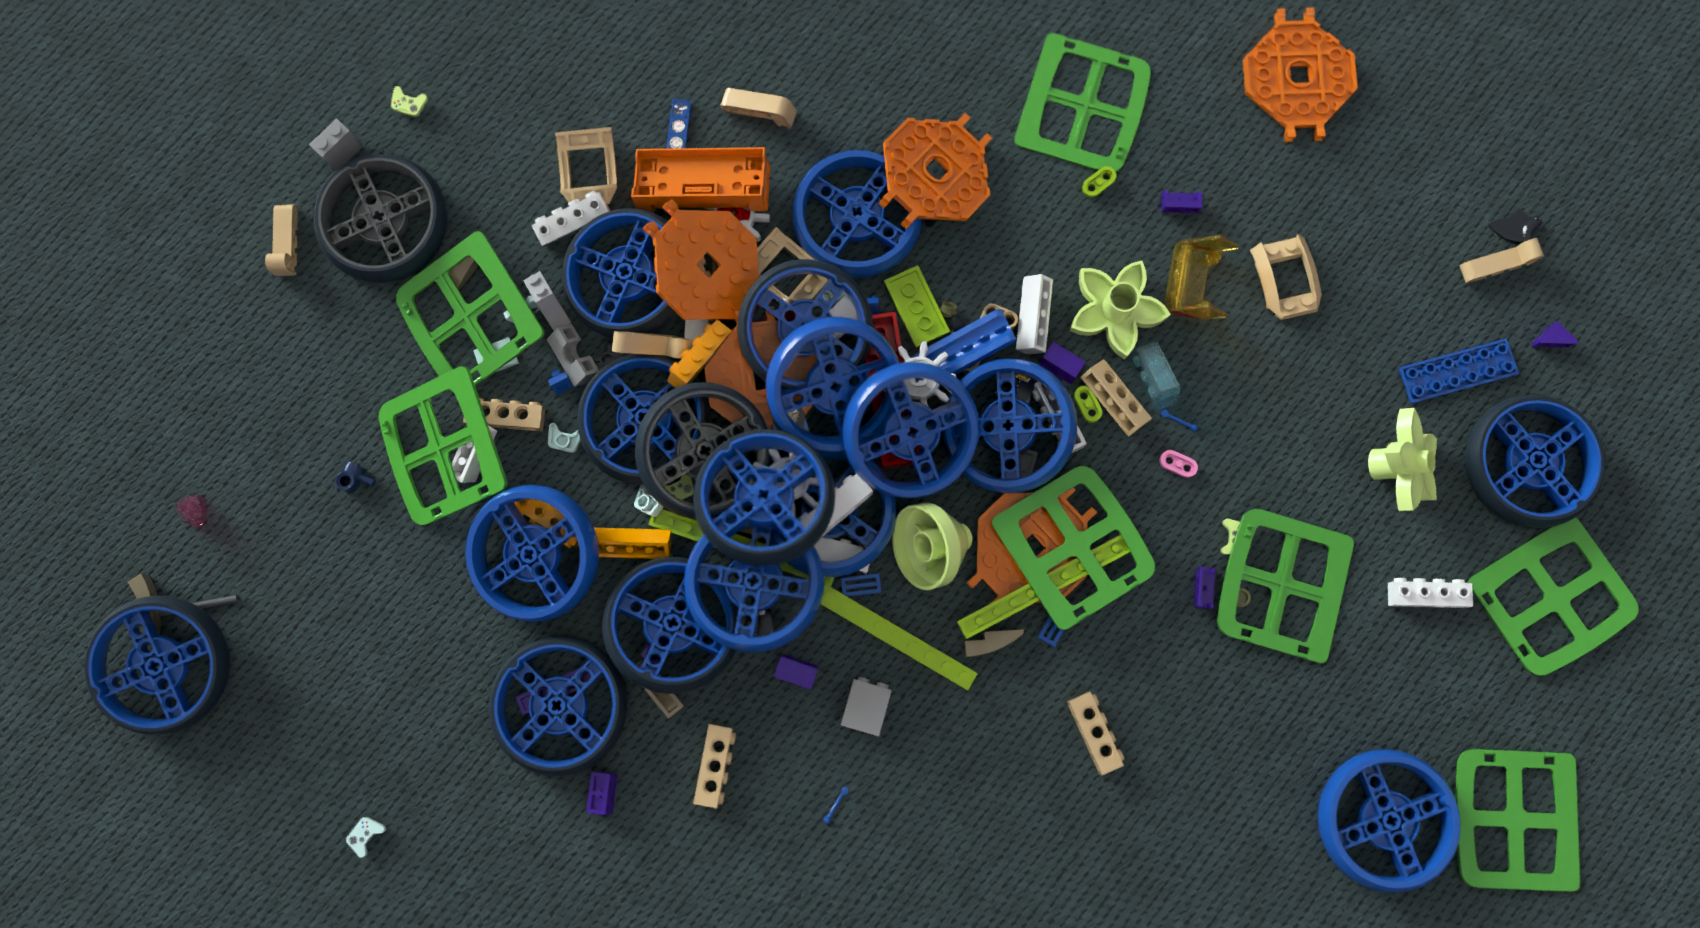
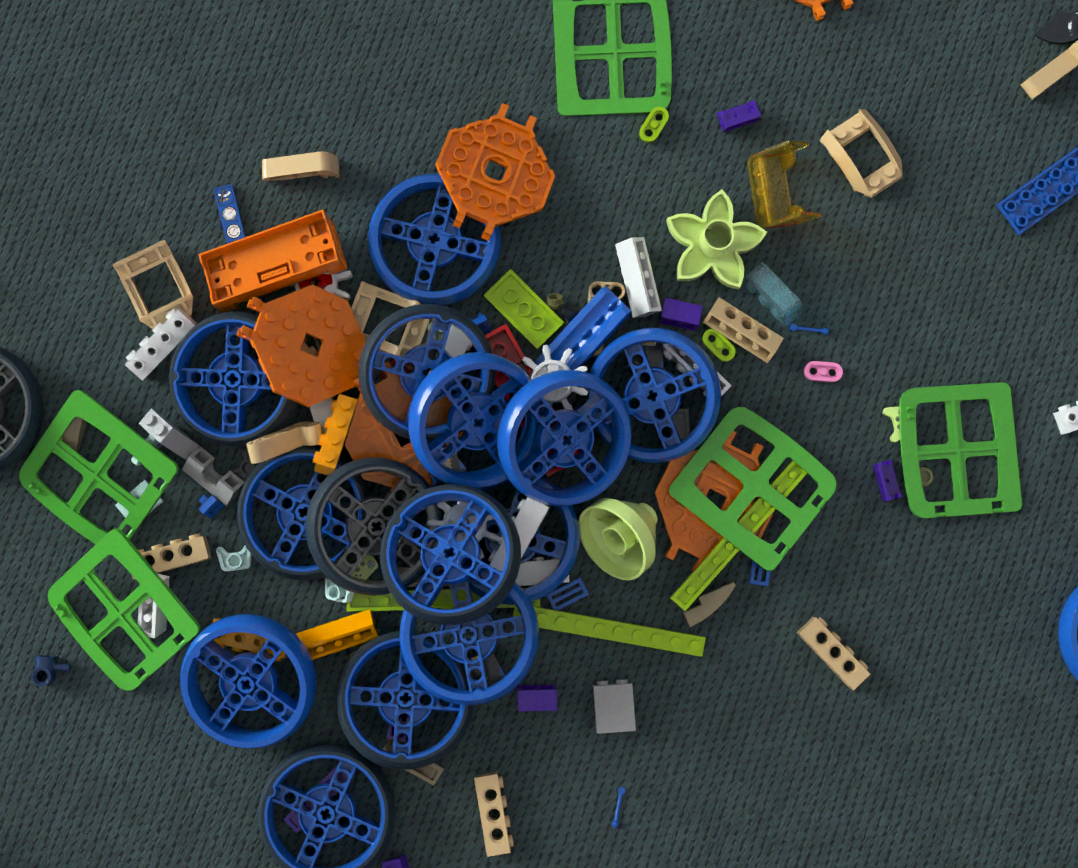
camera: 25 degrees left, 5 degrees up
(1408, 461) = (1035, 295): yellowish green plant -> none

